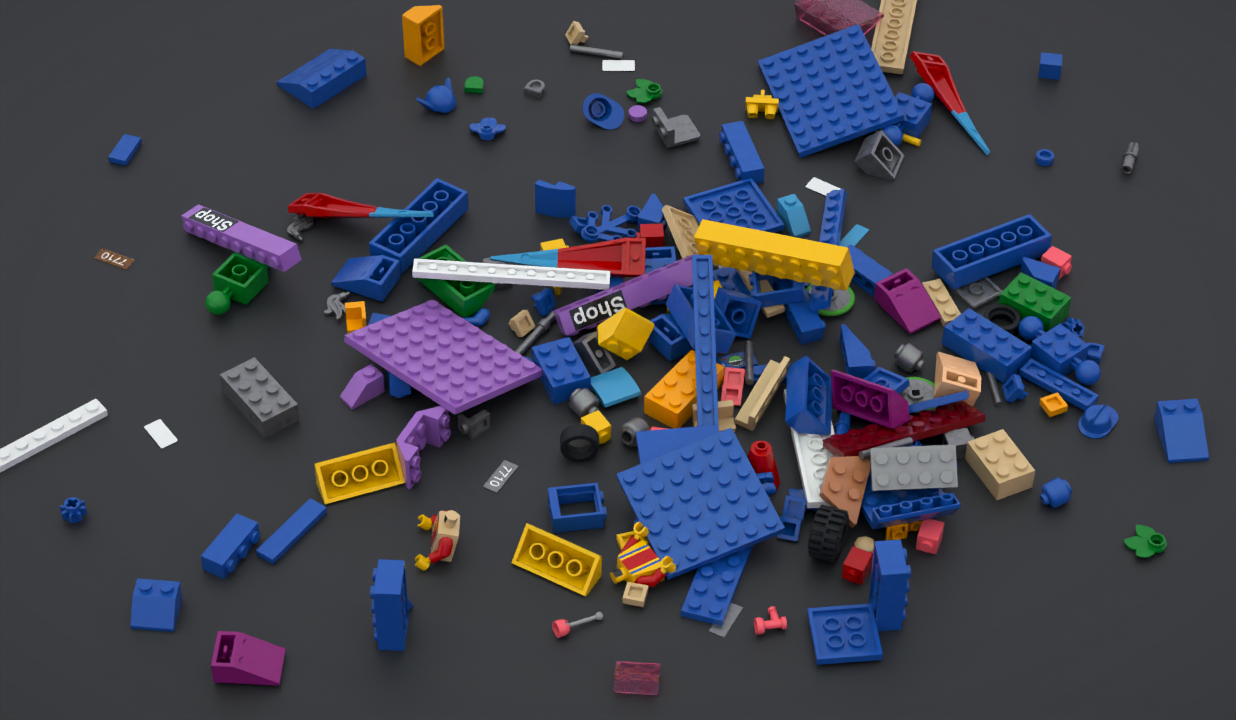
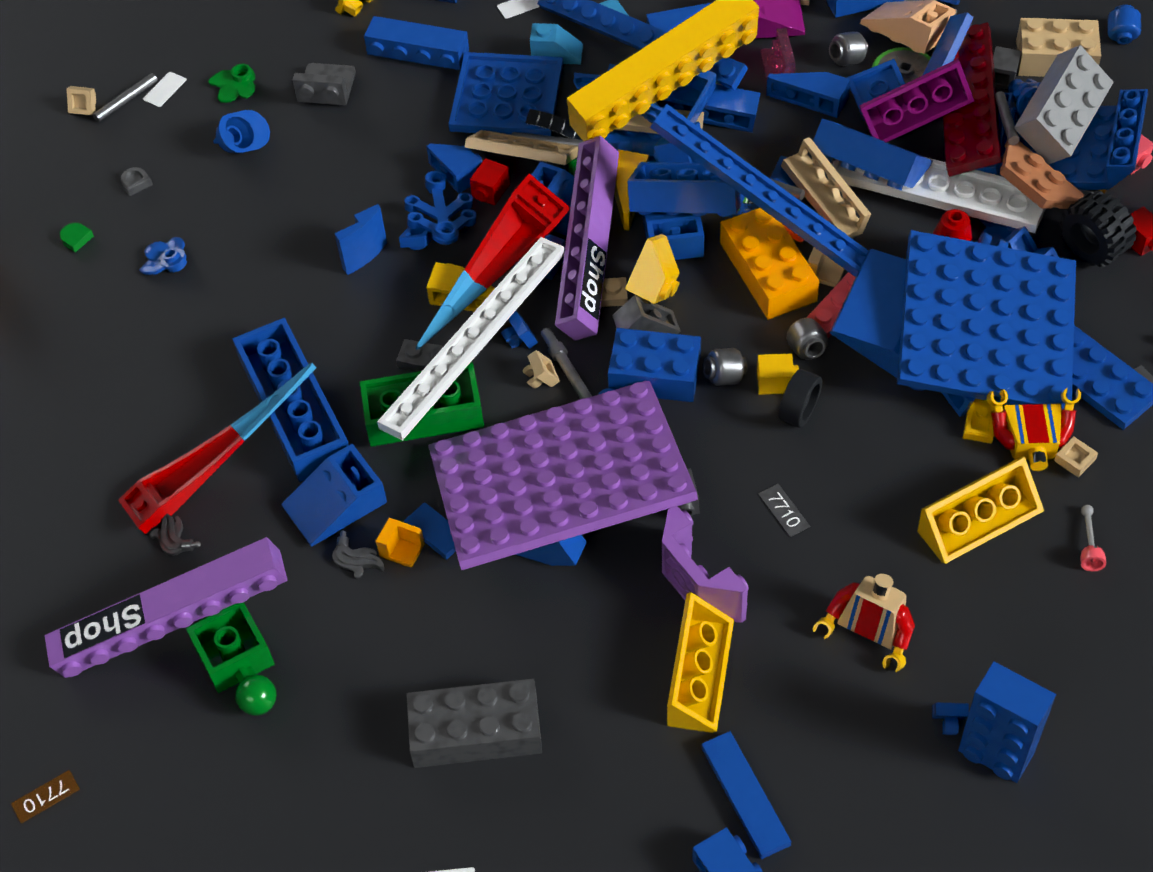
camera: 55 degrees left, 10 degrees up
(363, 387) = (537, 591): medium lavender slope -> none
(439, 98) = (72, 278): blue piece -> none
(479, 318) = (497, 407): blue arm -> none
(576, 494) = (893, 475): blue window -> none
(614, 387) = (716, 323): dark azure slope -> none
(637, 113) = (266, 105): medium lavender tile -> none
(843, 424) = (916, 147): blue axle -> none
(871, 326) = (780, 57): none -> clear pink bracket

